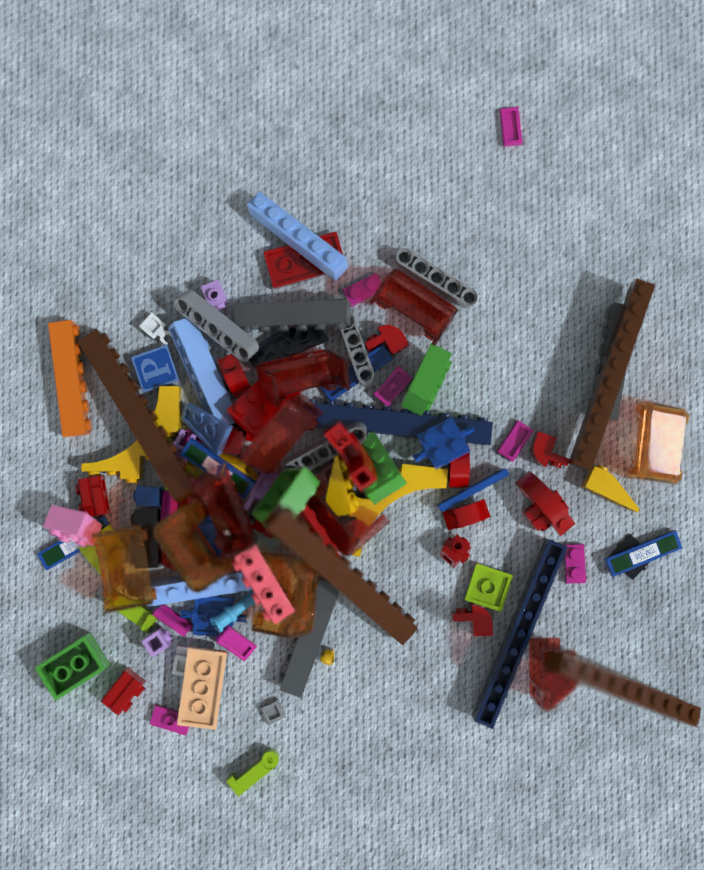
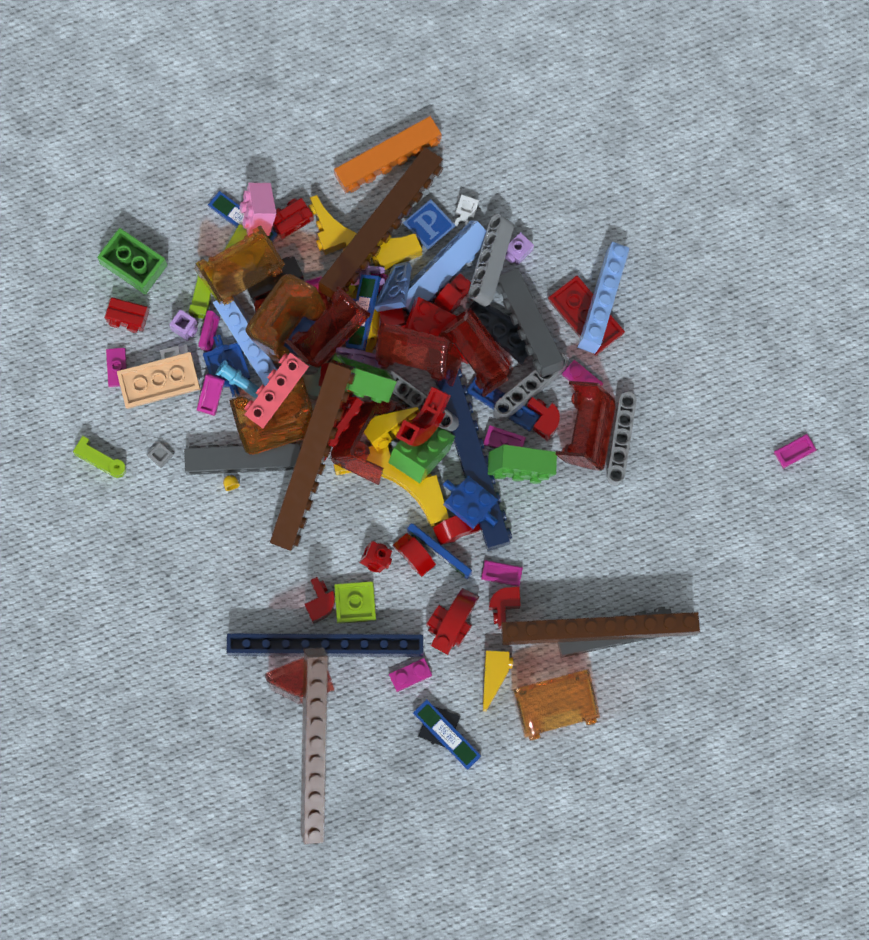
camera: 65 degrees right, 10 degrees down
(148, 496) = (311, 264): blue brick -> none

